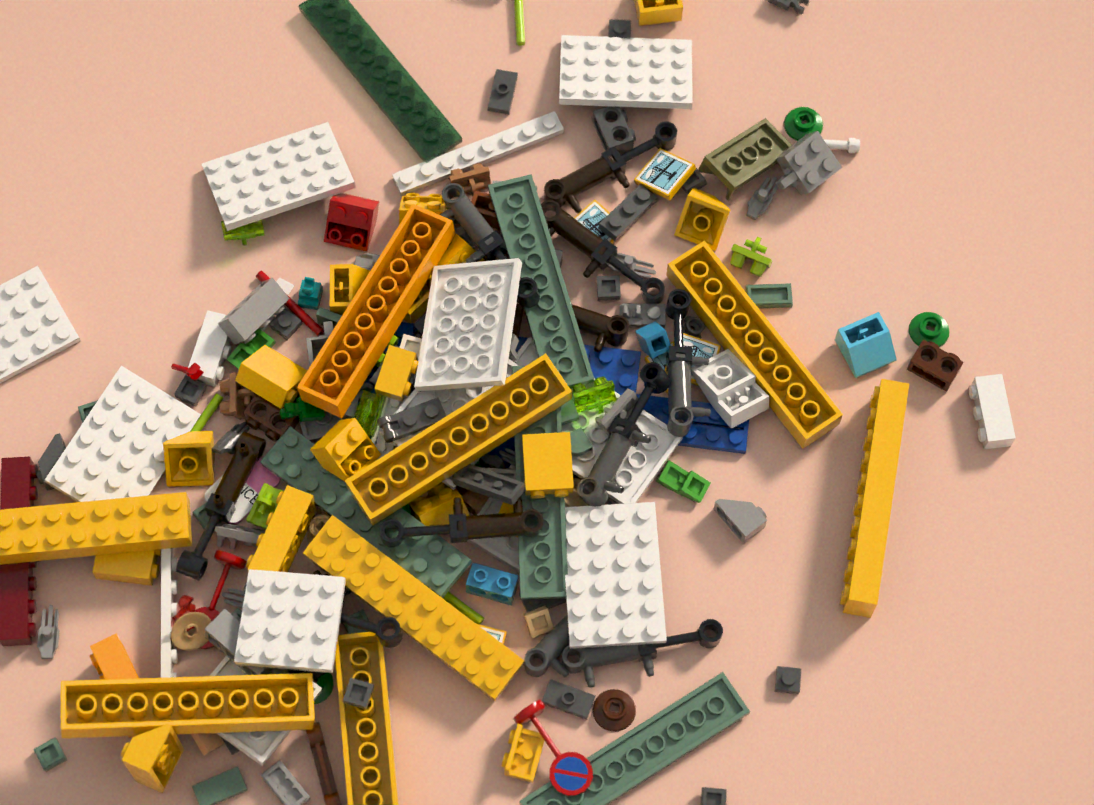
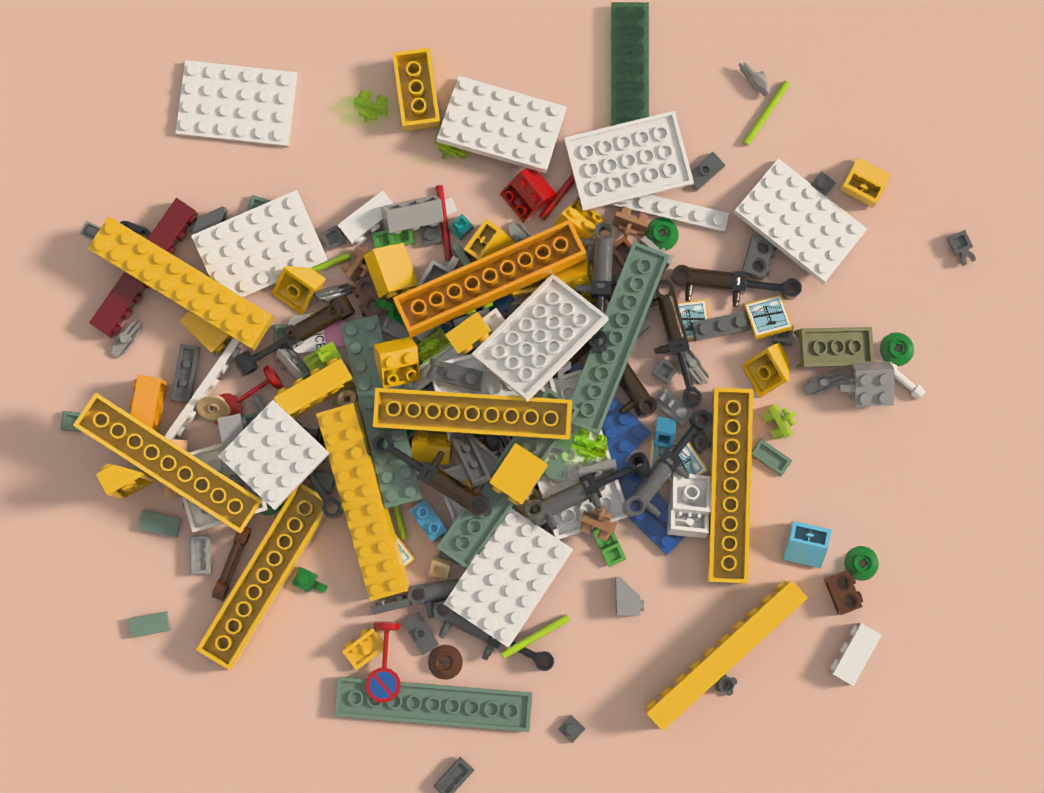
camera: 40 degrees right, 15 degrees up
(136, 621) = (185, 373): none -> dark grey plate
(137, 248) = (362, 102): none -> clear neon green hips
(170, 200) = (416, 89): none -> yellow brick
(185, 605) = (224, 386): clear red hand -> none
(193, 371) = (341, 229): red hand -> none
(358, 693) = (283, 534): dark grey plate -> none
(383, 193) = (556, 199): none -> red bar
(413, 732) = (307, 580): none -> green plate
(425, 126) = (628, 161): none -> white plate
(510, 163) = (670, 229): none -> green piece
(511, 699) = (382, 606): none -> dark grey plate
(670, 460) = (599, 520): none -> medium nougat hips
(682, 617) = (535, 636): none -> lime bar
(902, 523) = (727, 689): none -> dark grey plate

